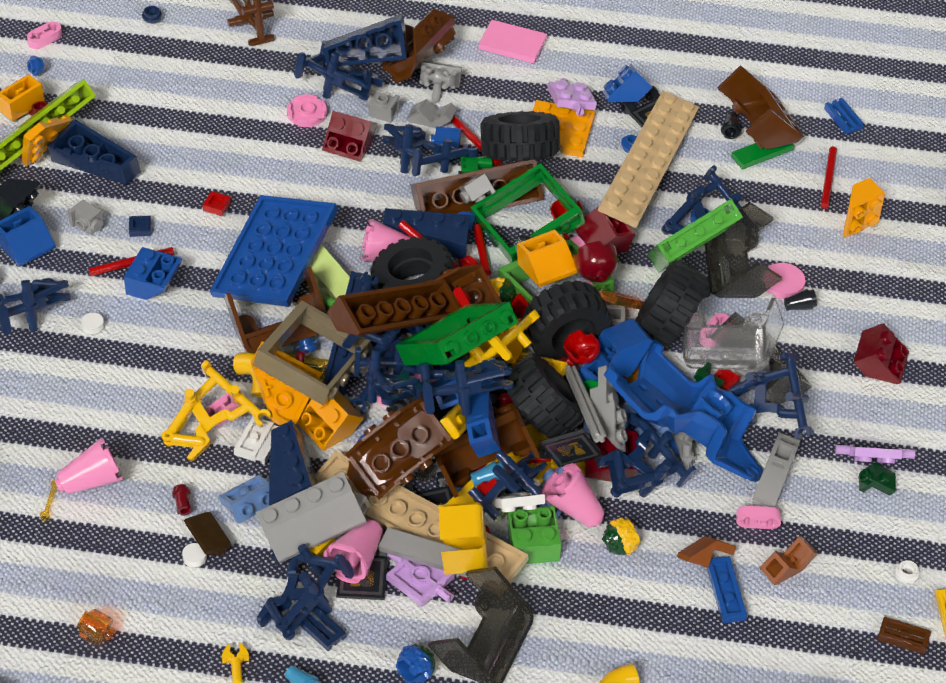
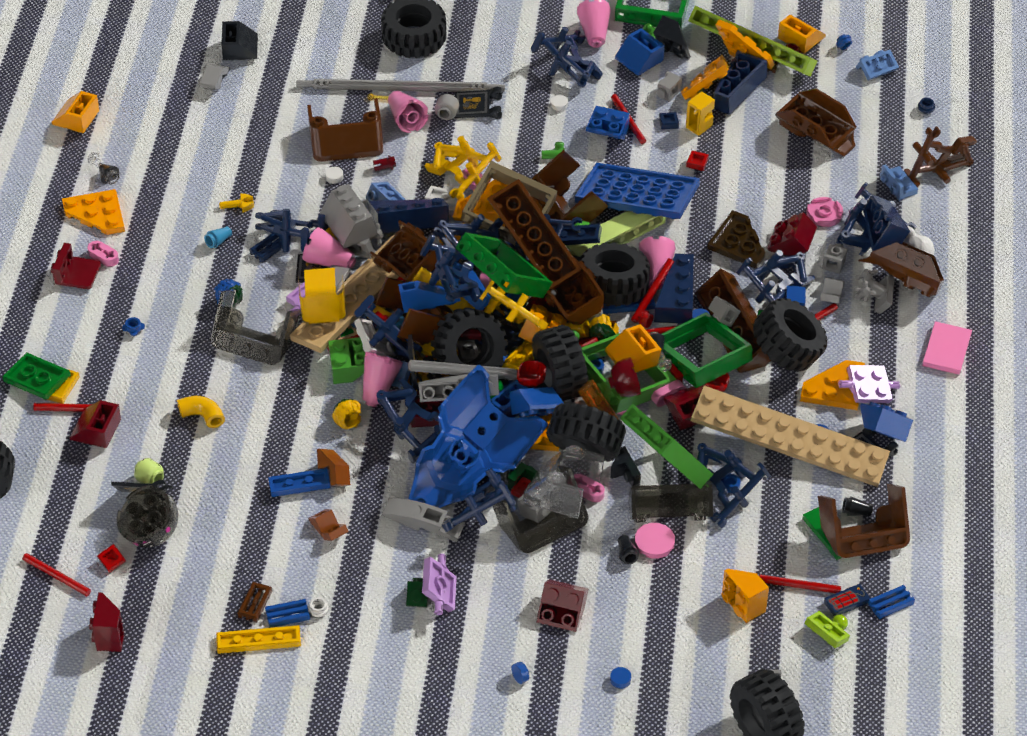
camera: 90 degrees right, 0 degrees up
(31, 486) = (394, 85): none -> light grey axle
(44, 35) = (884, 42): bright pink beam -> none
(78, 42) = (878, 64): none -> medium blue bracket
(79, 407) = (478, 103): none -> black flag
(81, 176) = (714, 70): none -> light orange plate
(89, 428) = (446, 107): none -> light grey head
(95, 627) = (266, 126): clear orange head -> none
(133, 559) = (348, 139): none -> reddish brown windscreen
(145, 192) = (703, 118): none -> yellow brick
(168, 94) = (820, 118): none -> reddish brown slope
(182, 330) = (551, 154): none -> bright green arm
(208, 534) = (350, 175): dark brown slope -> none
(269, 49) = (898, 182): none -> medium blue bracket
(349, 180) = (738, 240): none -> dark brown plate
(462, 296) = (566, 288): red tile -> none
(758, 517) = (373, 506): bright pink beam -> none
(845, 145) = (847, 600): none -> tile
(883, 162) = (830, 630): none -> lime plate
(910, 586) = (287, 610): none -> blue tile

